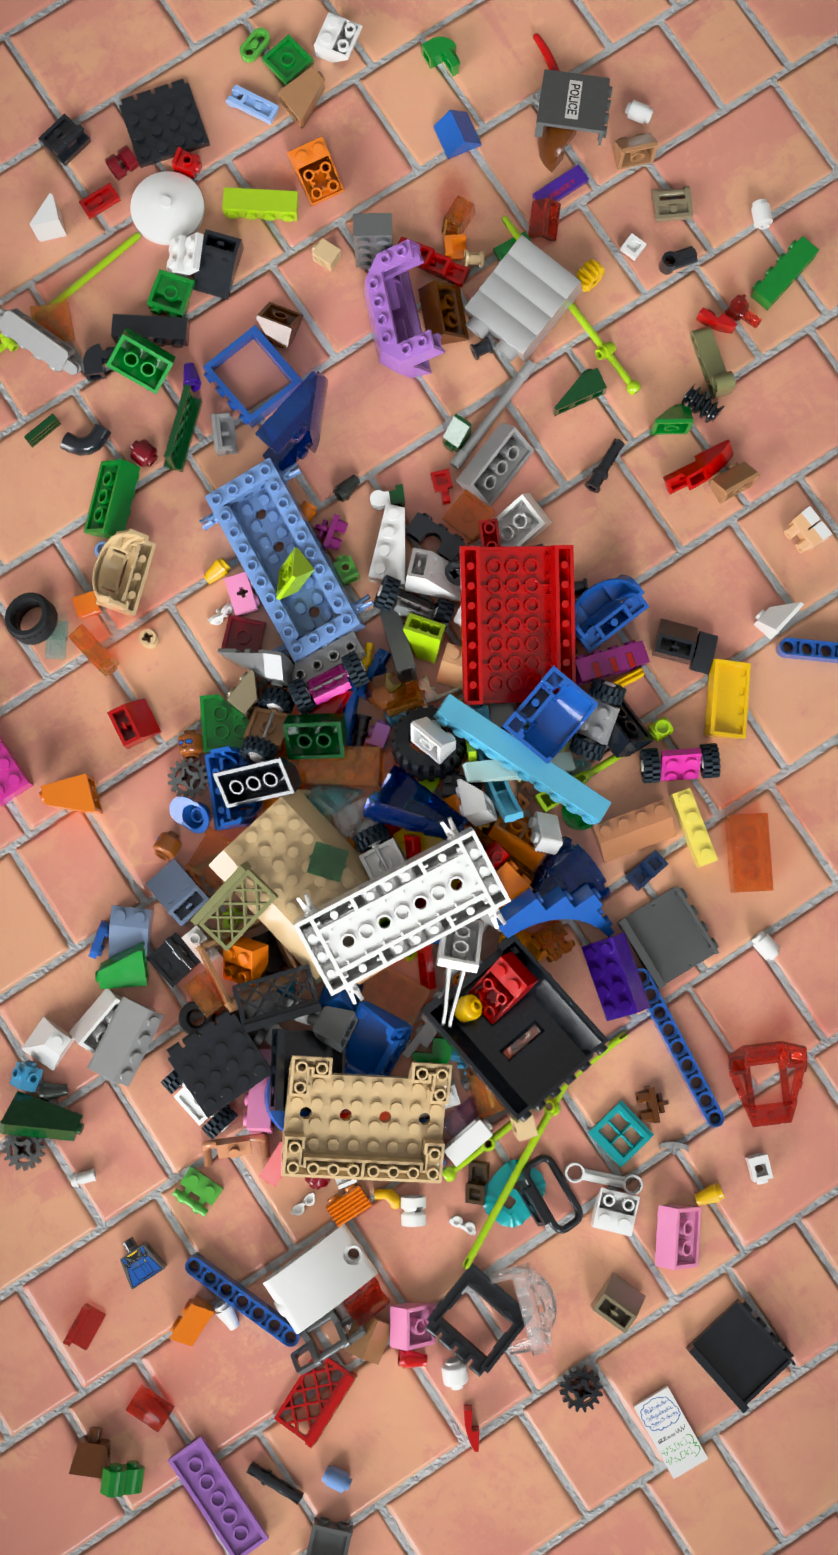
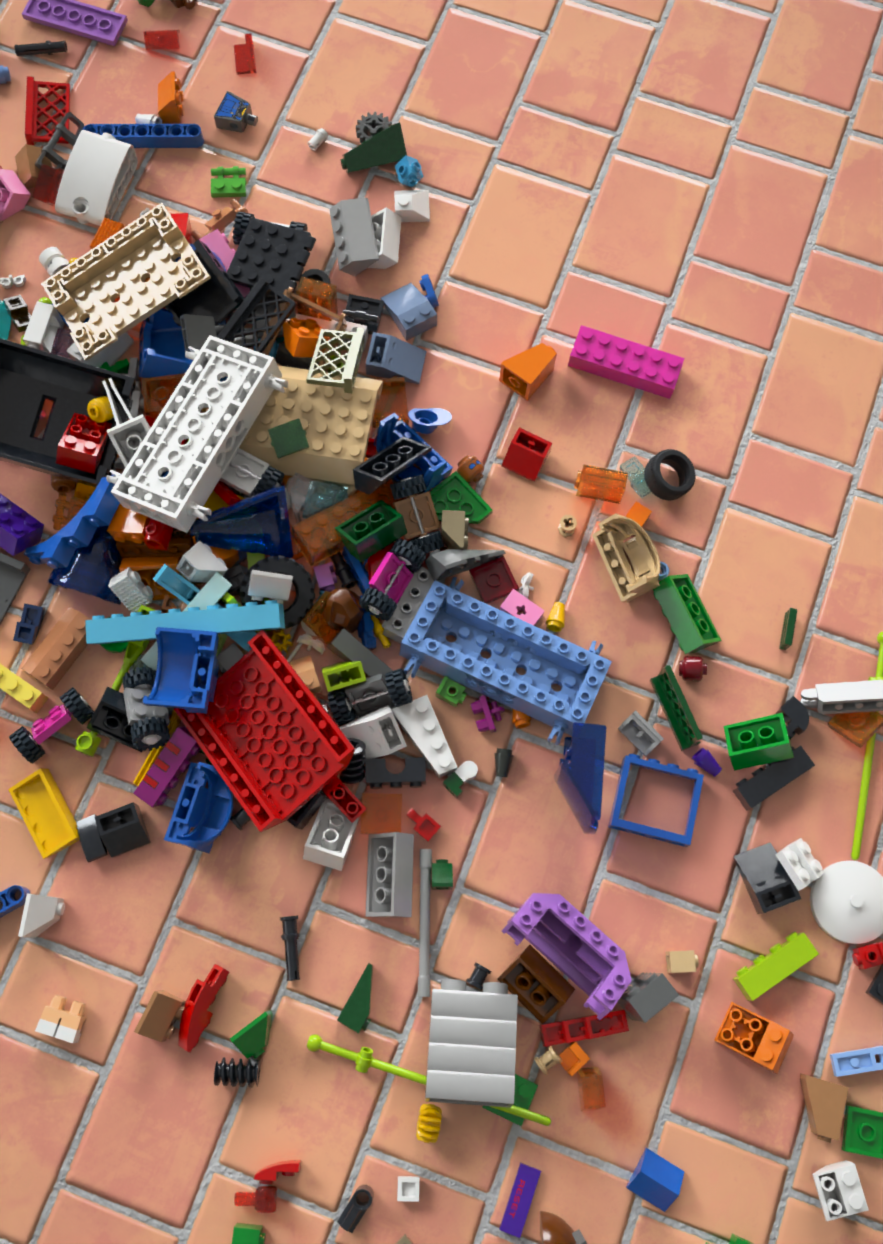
camera: 140 degrees right, 10 degrees down
(52, 1090) = (384, 176): pearl dark grey cone -> none
(86, 445) = (742, 644): black cylinder -> none
(124, 969) = (393, 281): slope -> none
(167, 845) = (430, 386): dark orange head -> none
(170, 294) = (782, 820): green plate -> none
(197, 776) = (452, 436): dark grey gear -> none
(279, 324) = (671, 865): reddish brown slope -> none
(293, 574) = (489, 647): lime slope -> none
(544, 219) = (511, 1151): clear red panel -> none
(717, 378) = (255, 1122): olive beam -> none

